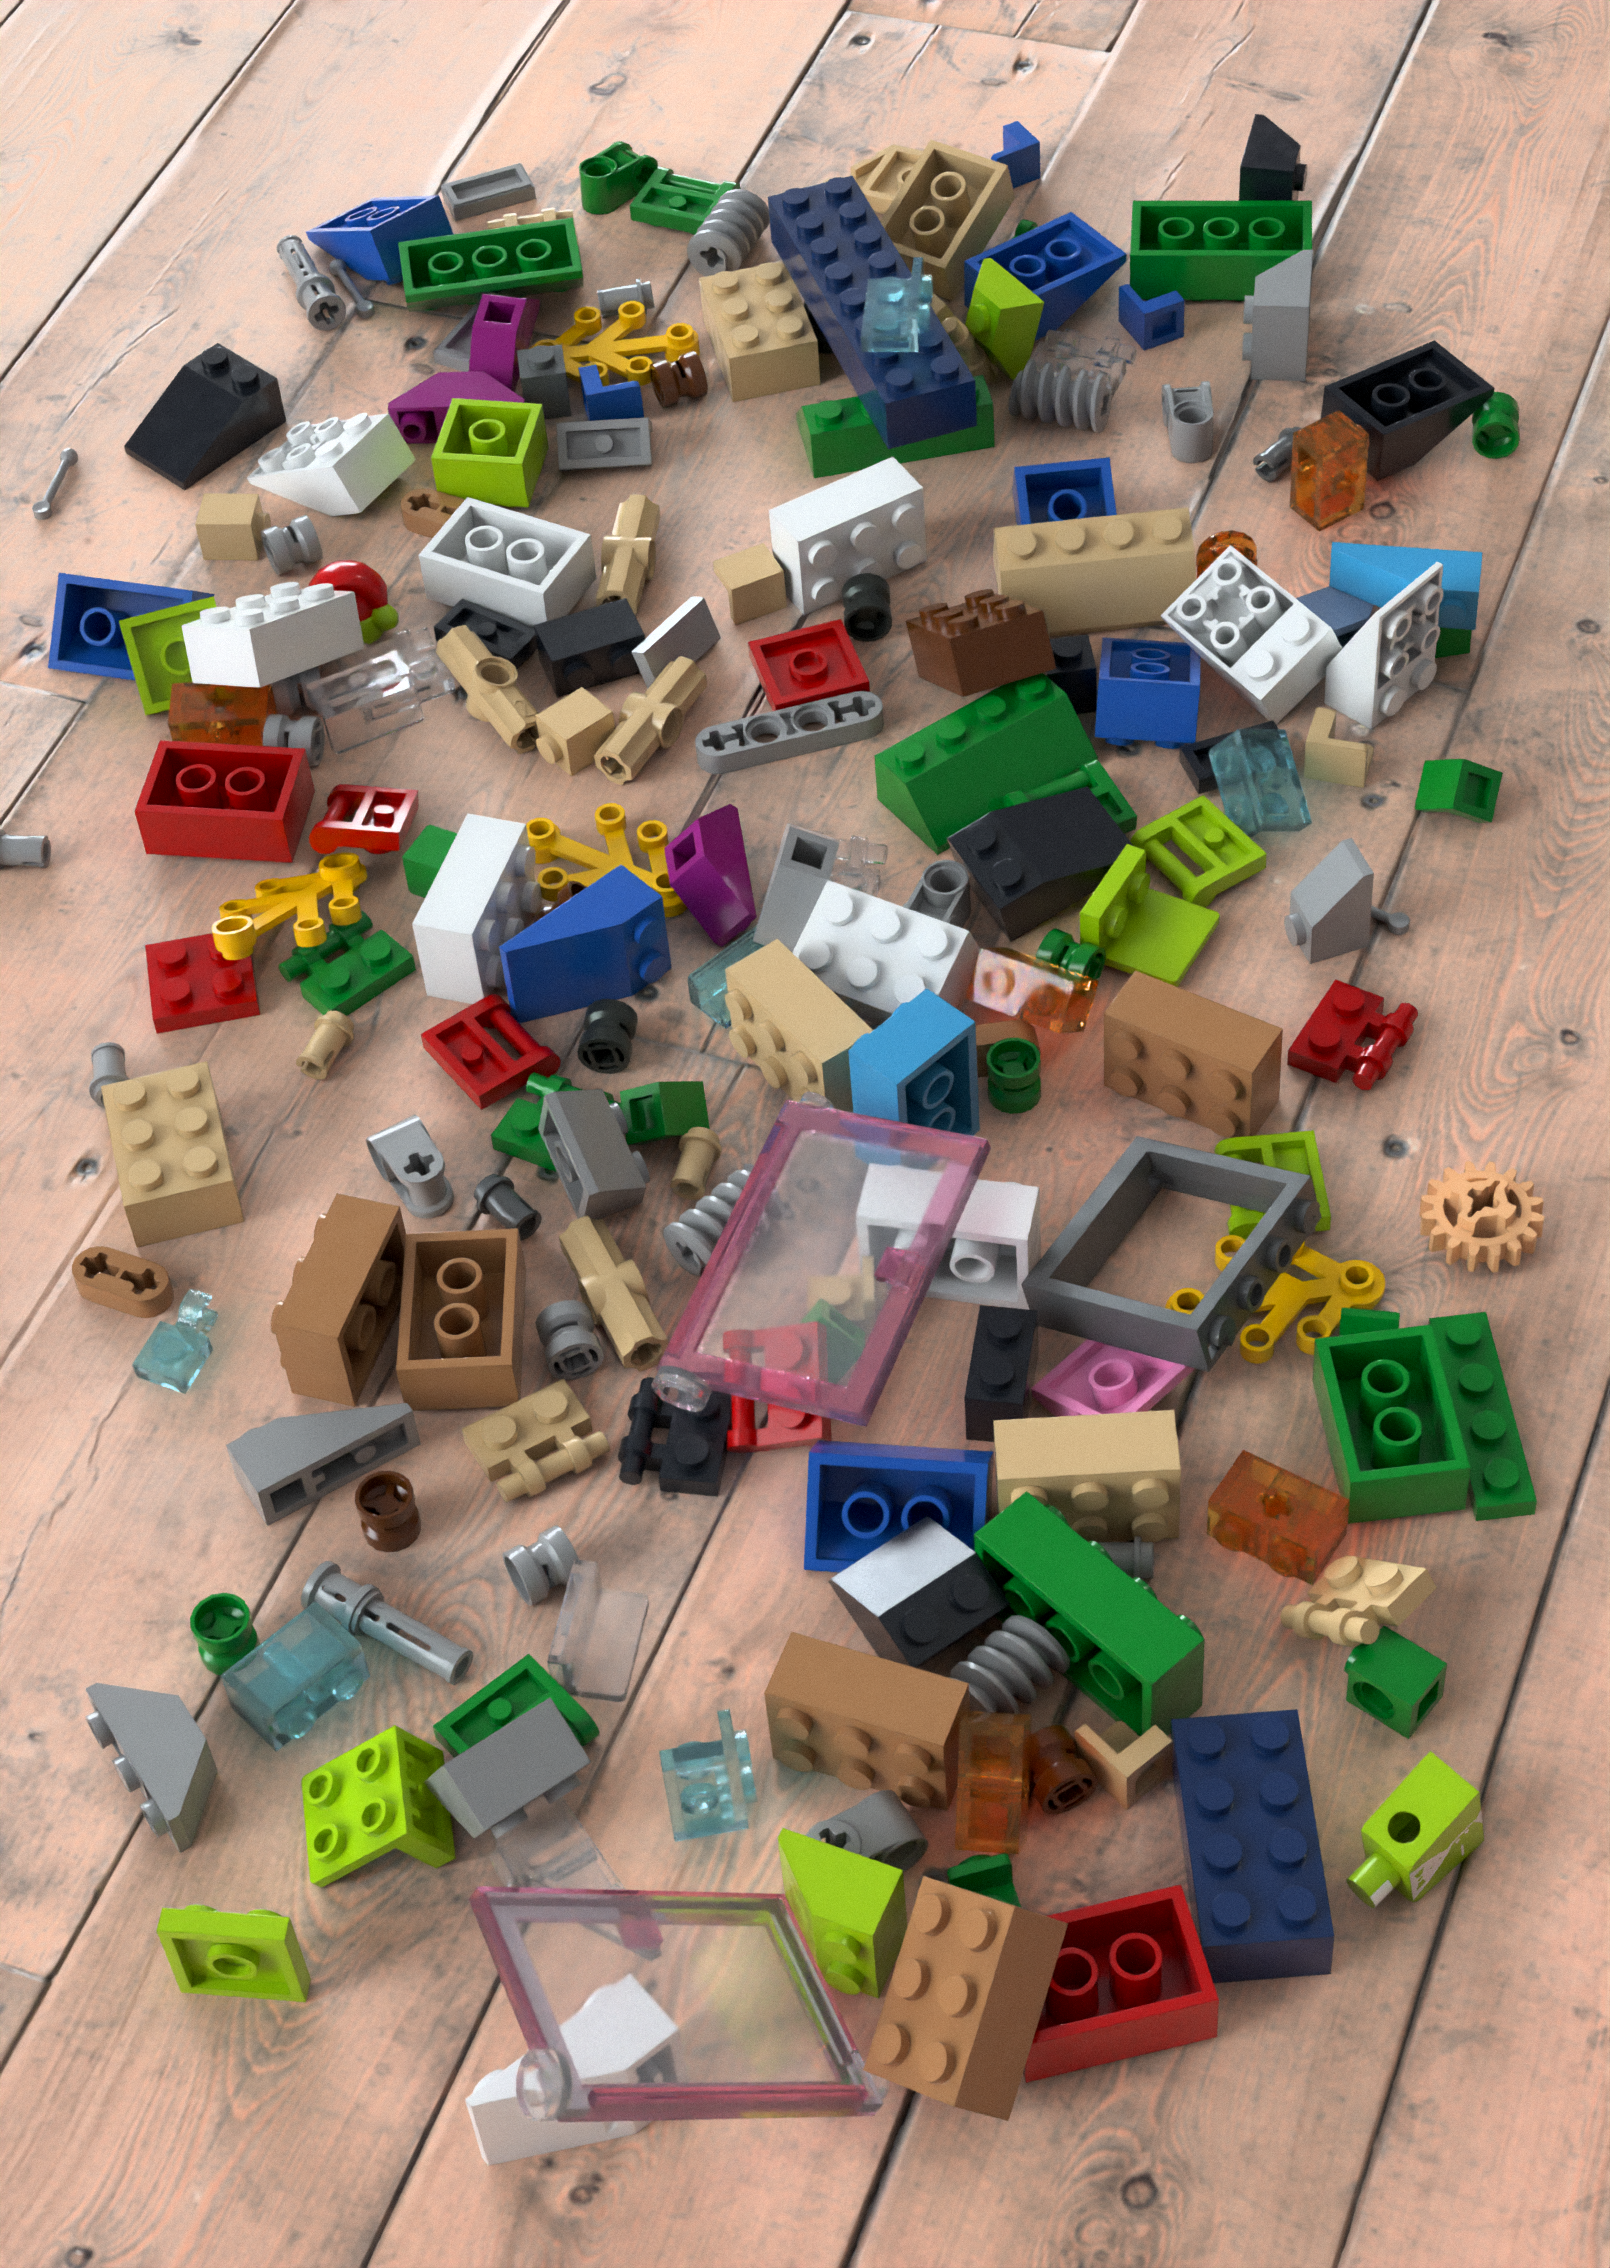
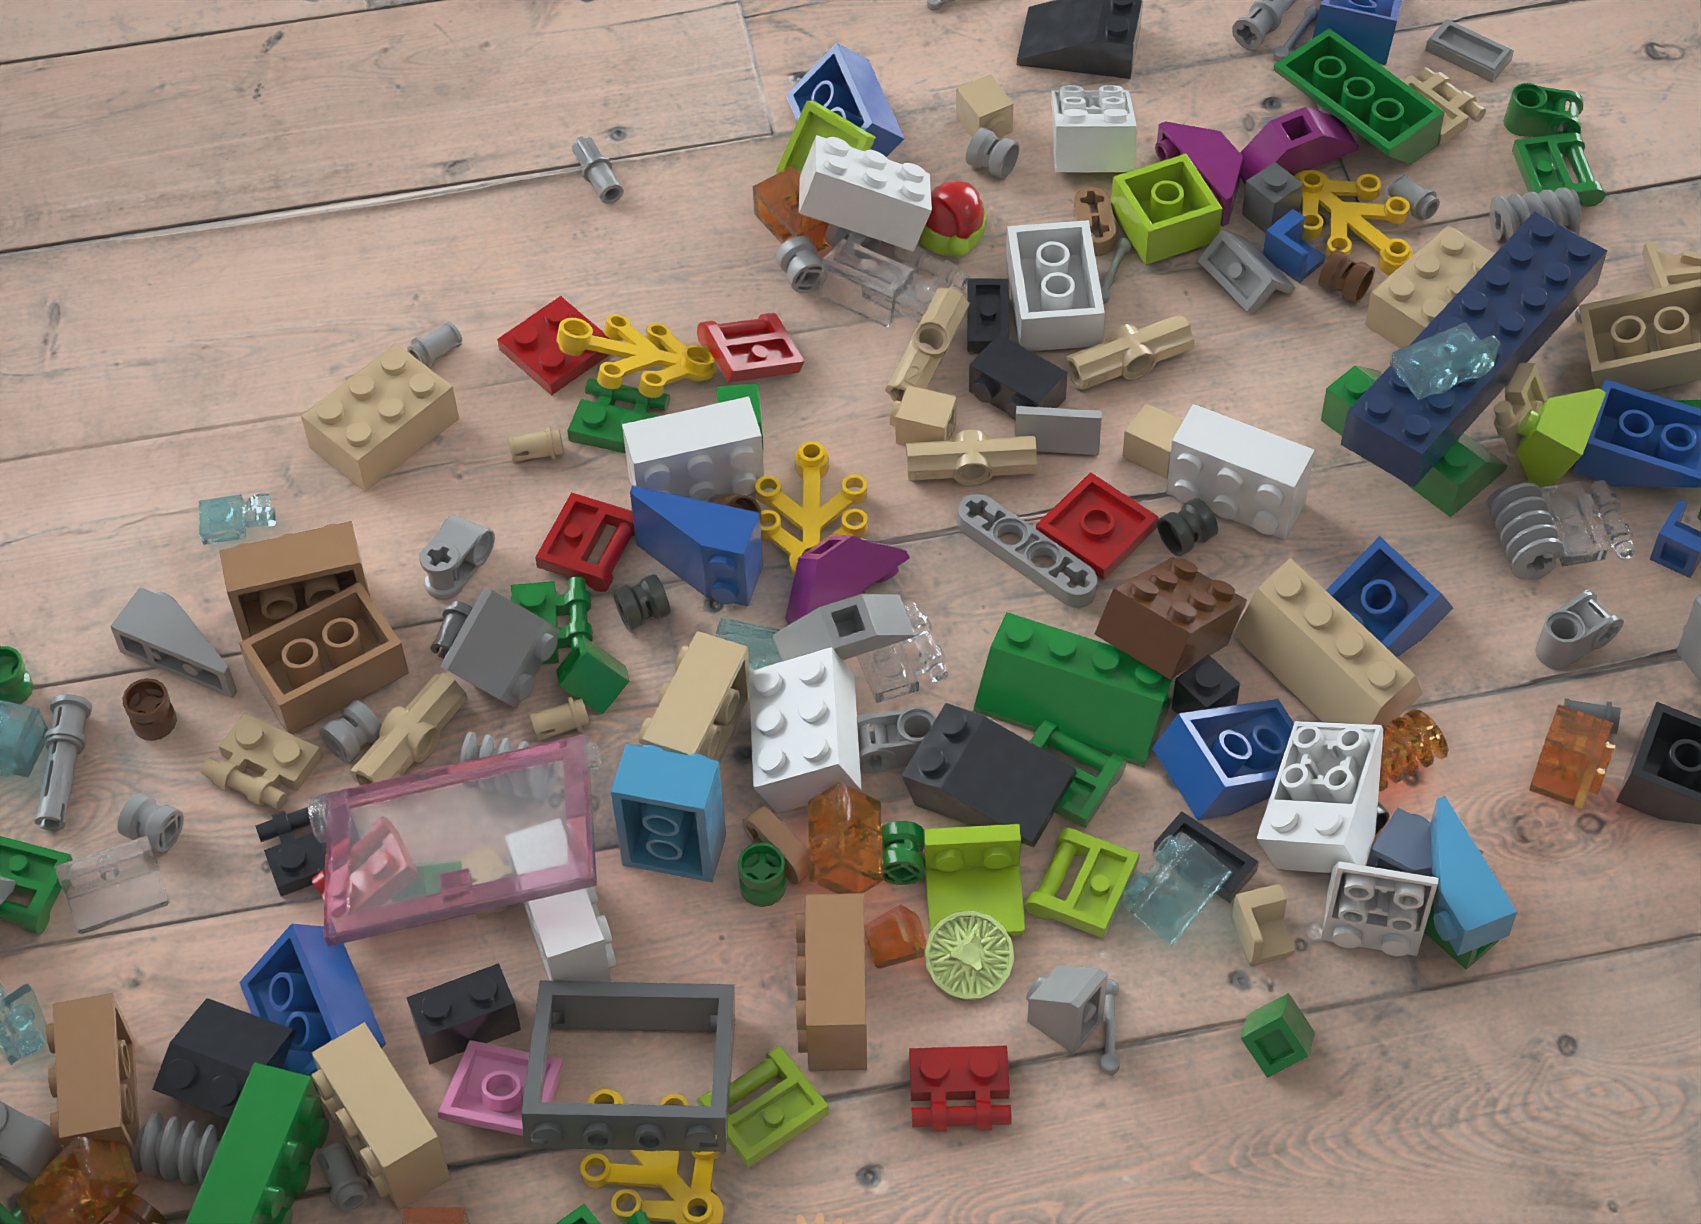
camera: 55 degrees right, 5 degrees up
(119, 1288) = (260, 457): medium nougat beam -> none
(225, 801) = (708, 259): red brick -> none
(1218, 963) = (969, 955): none -> yellowish green wheel

